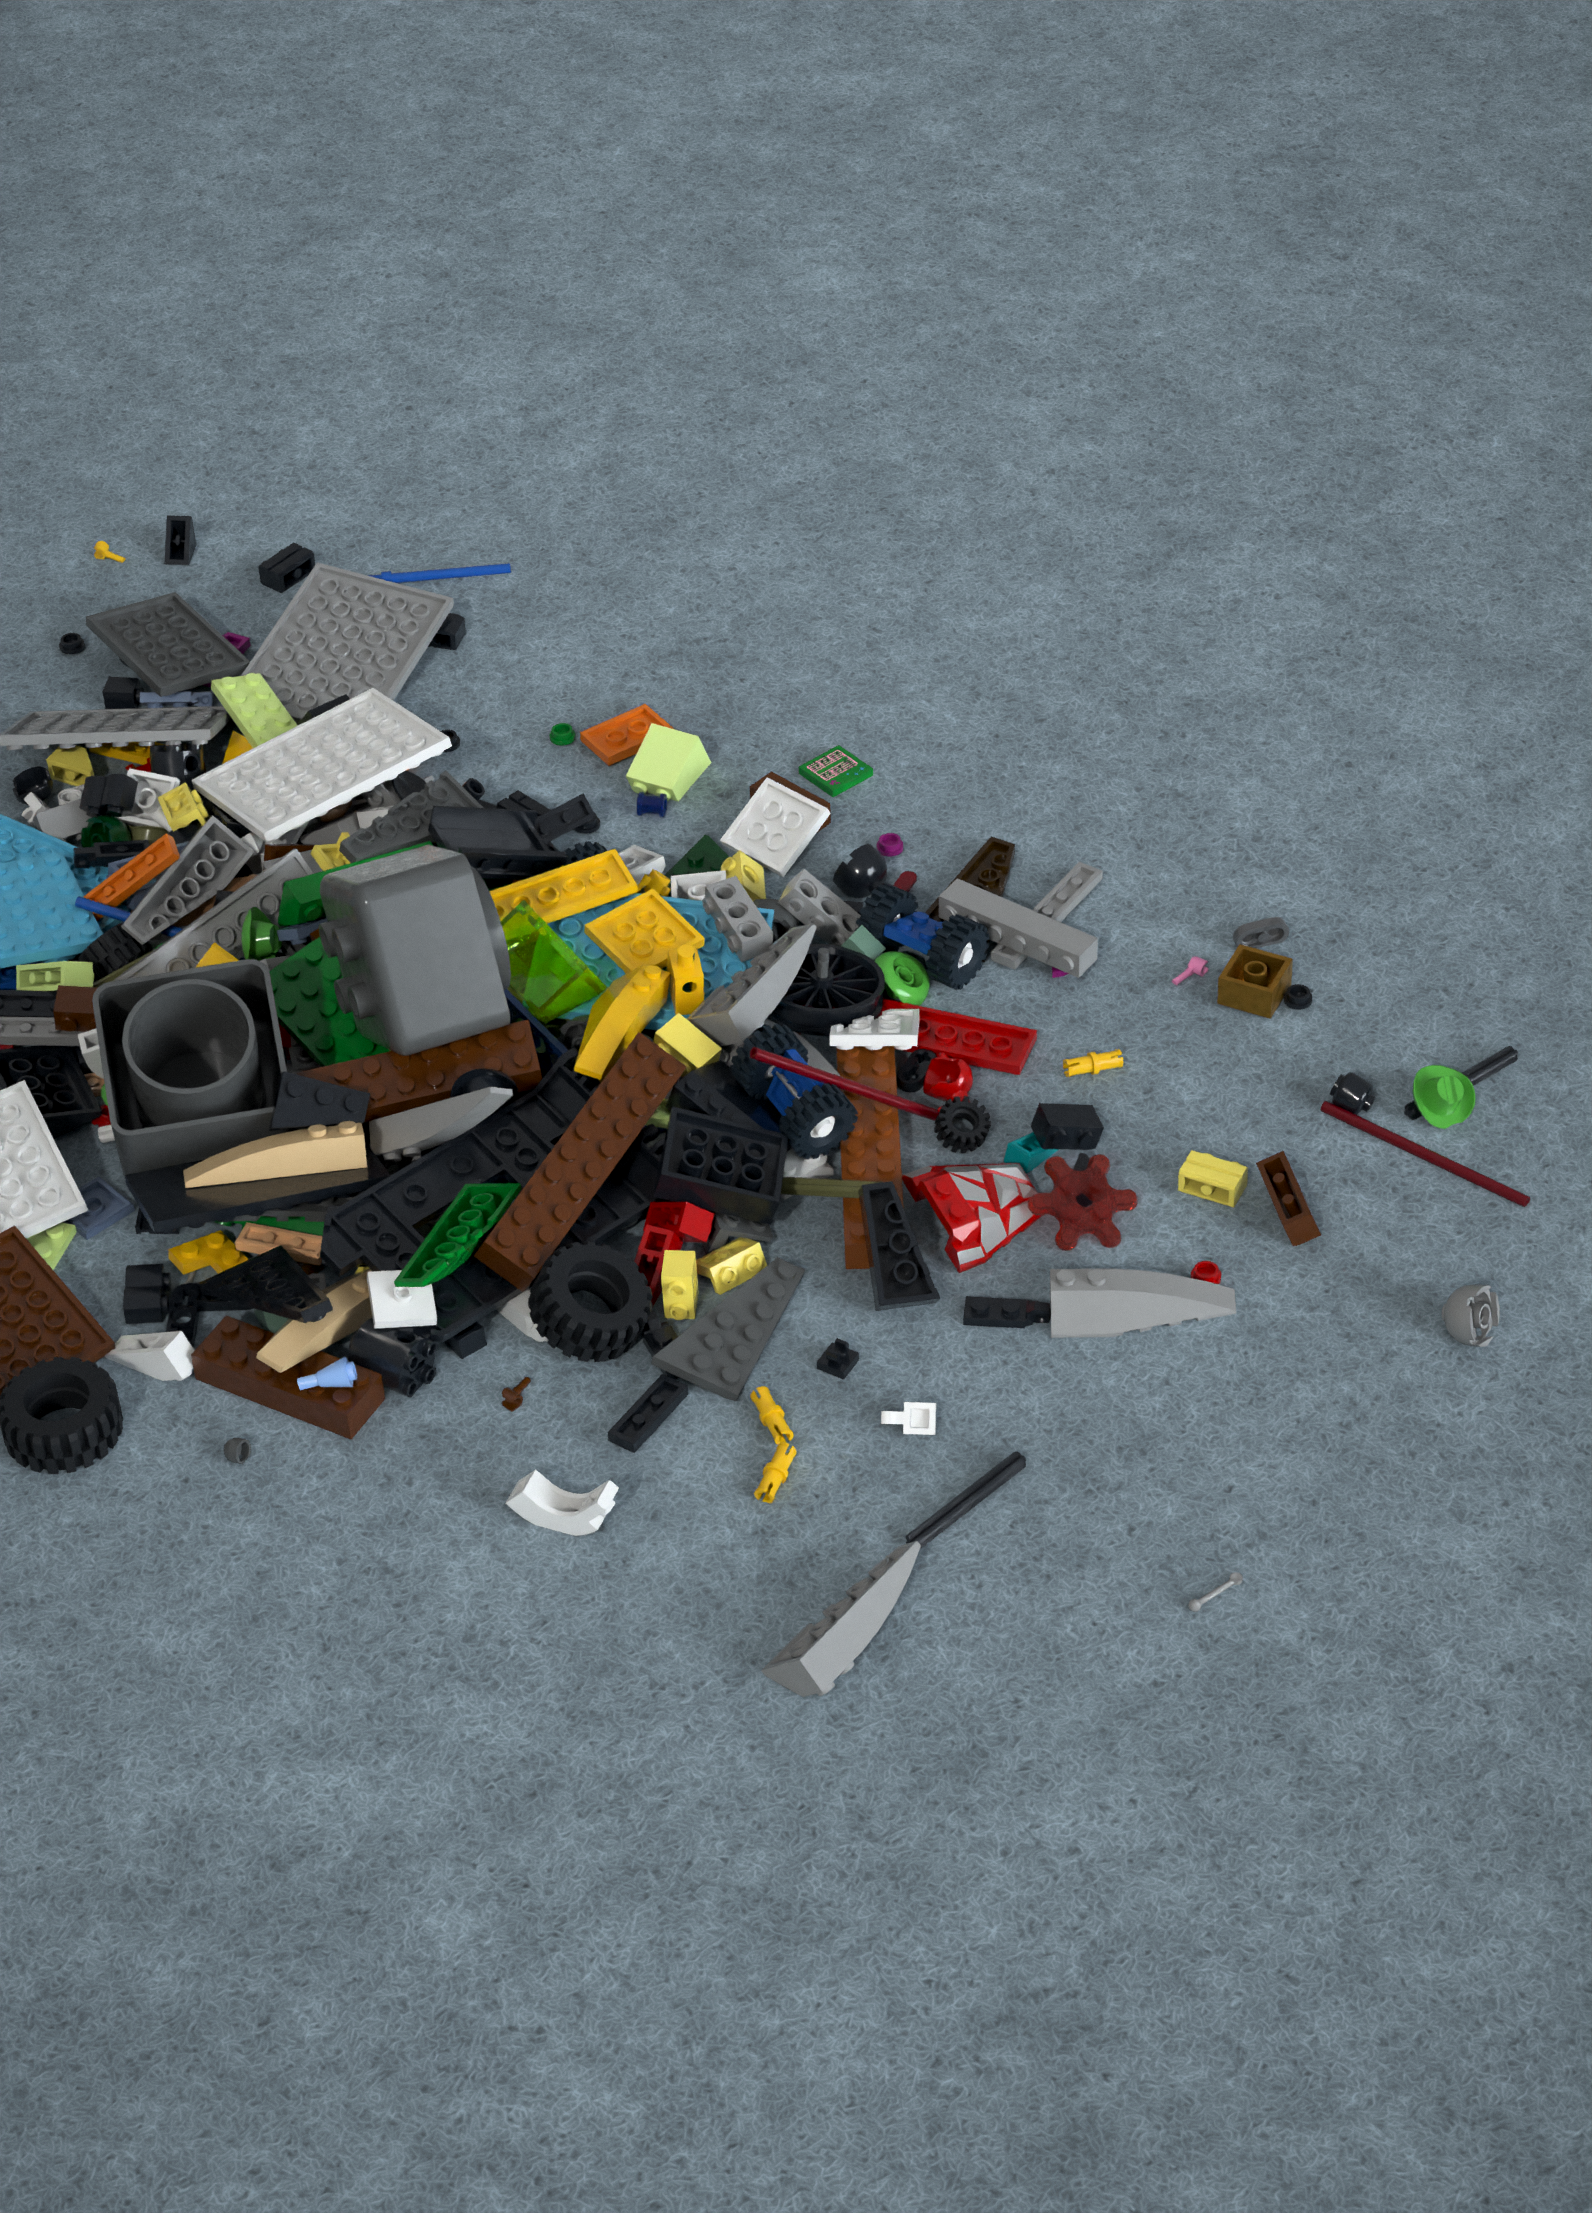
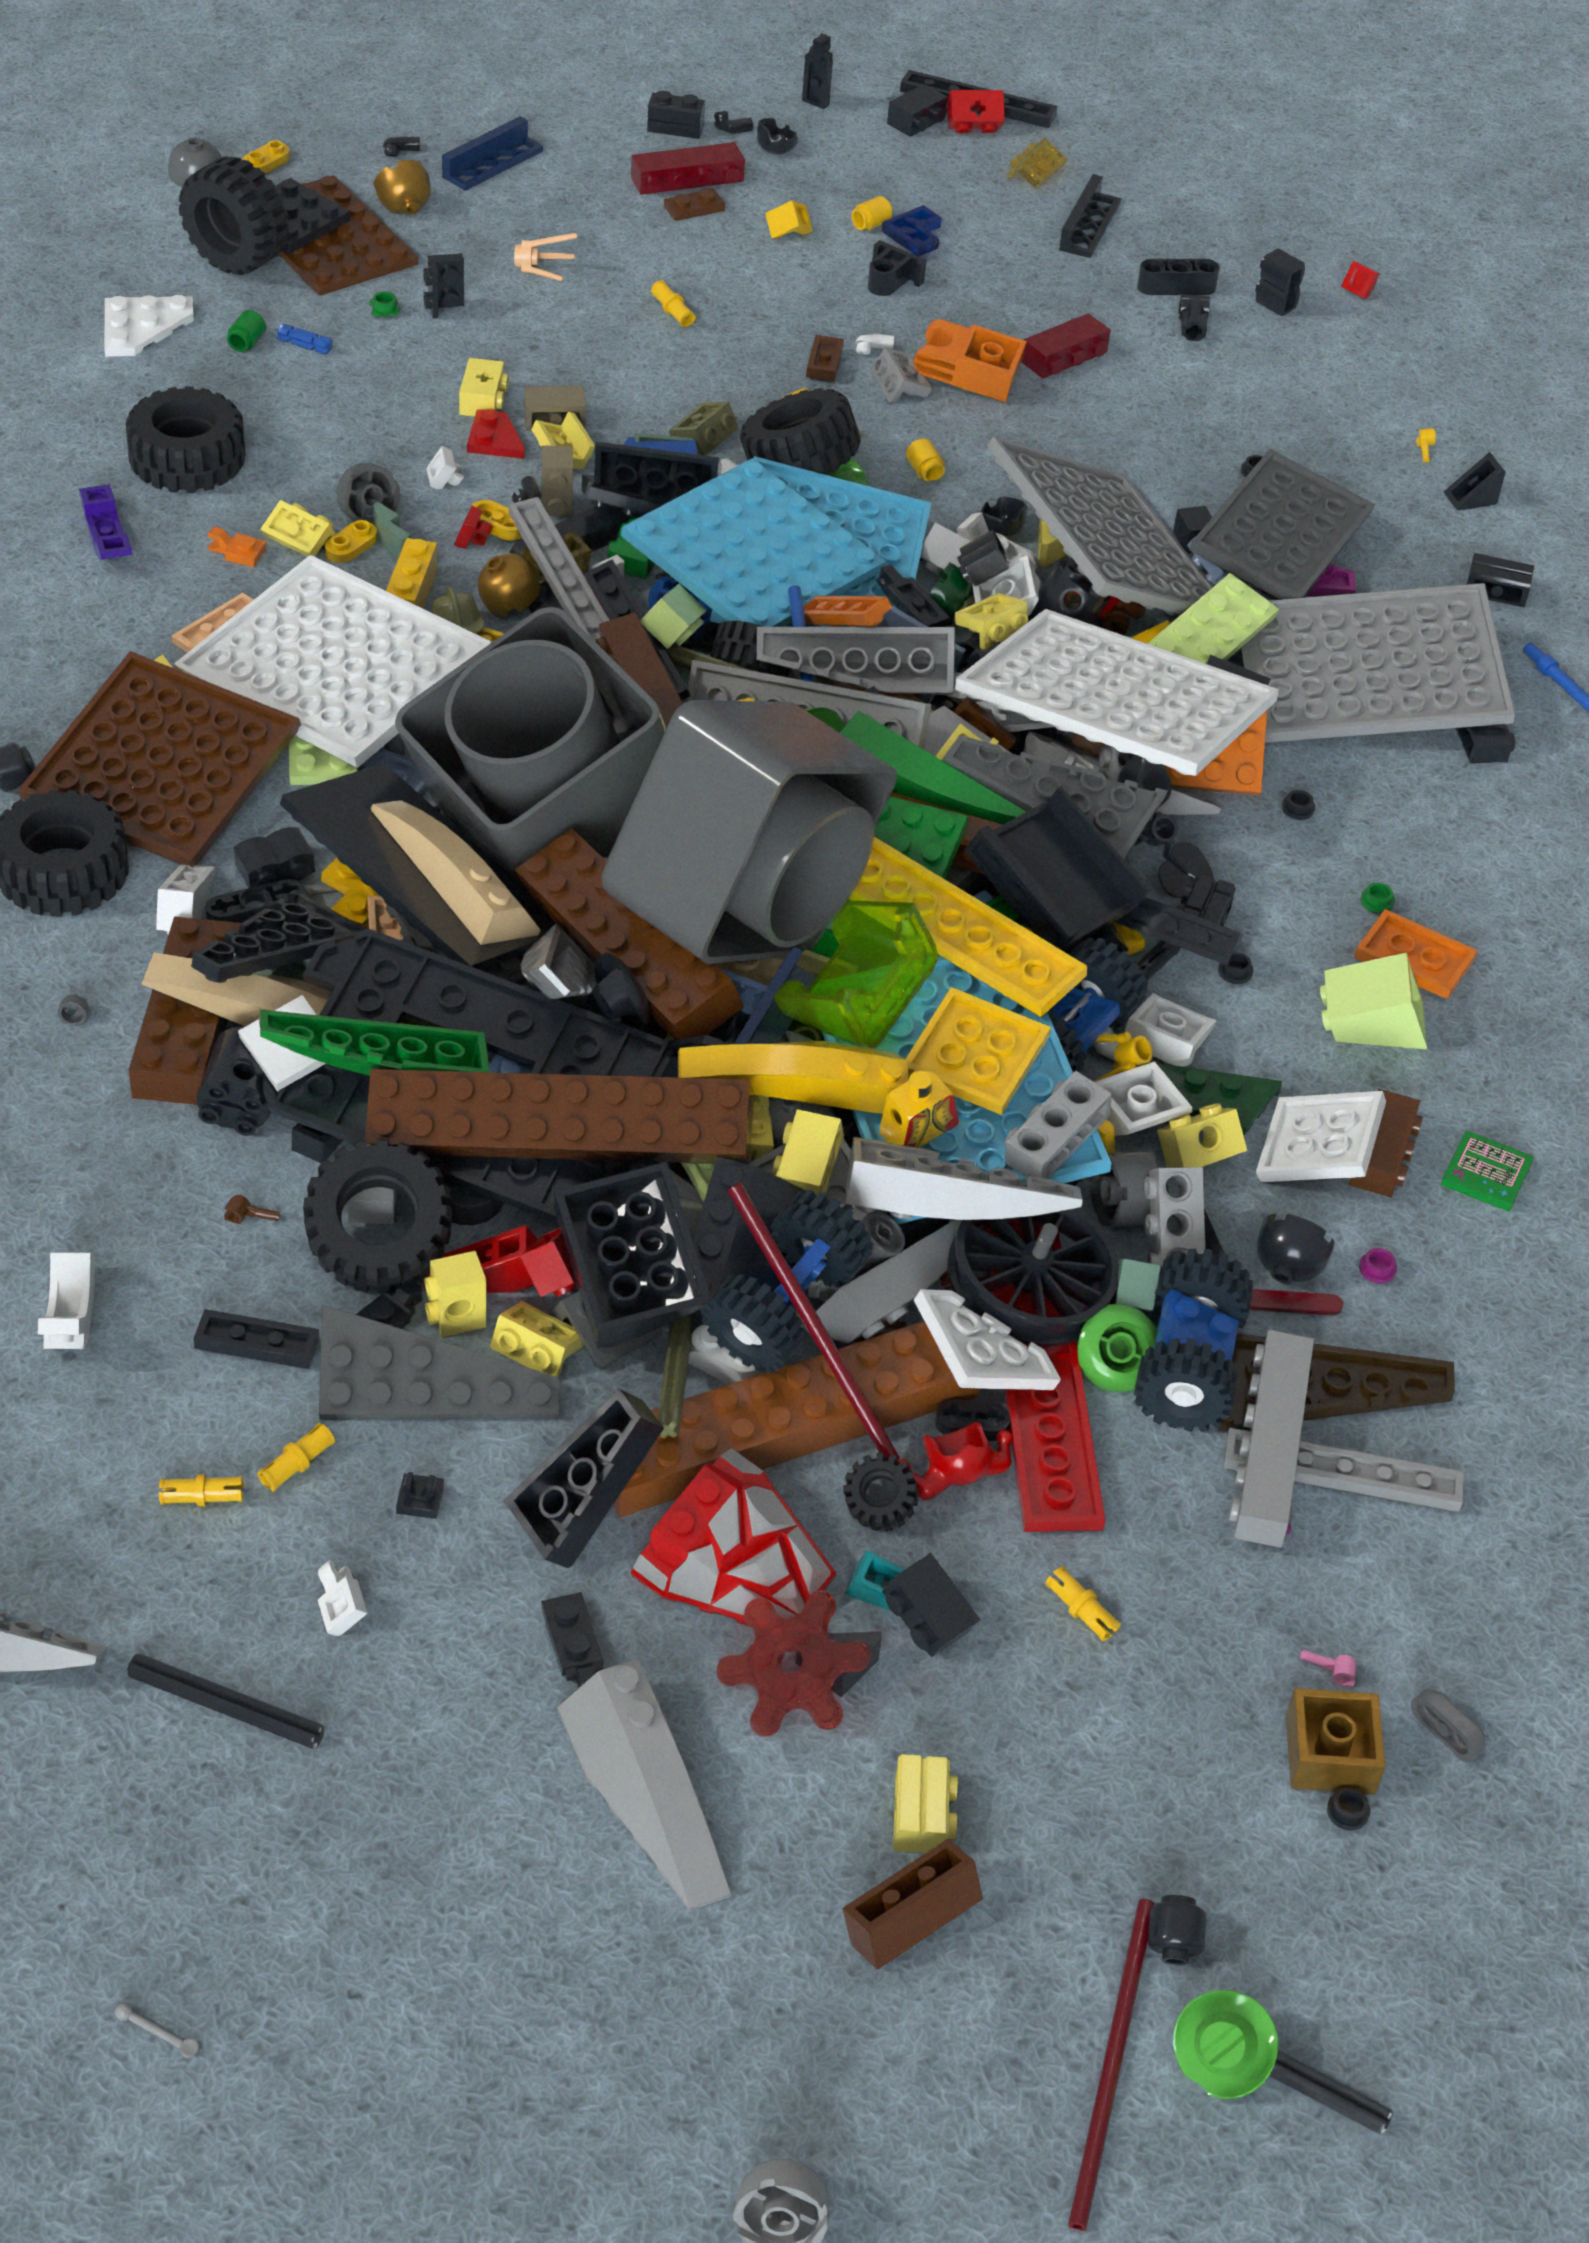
camera: 60 degrees right, 5 degrees up
(311, 1102) = (516, 855): black wing -> none
(334, 1375) = (167, 1035): light blue cone -> none
(651, 804) = (1304, 1019): clear blue bush -> none
(1206, 1271) = (738, 1851): red plate -> none

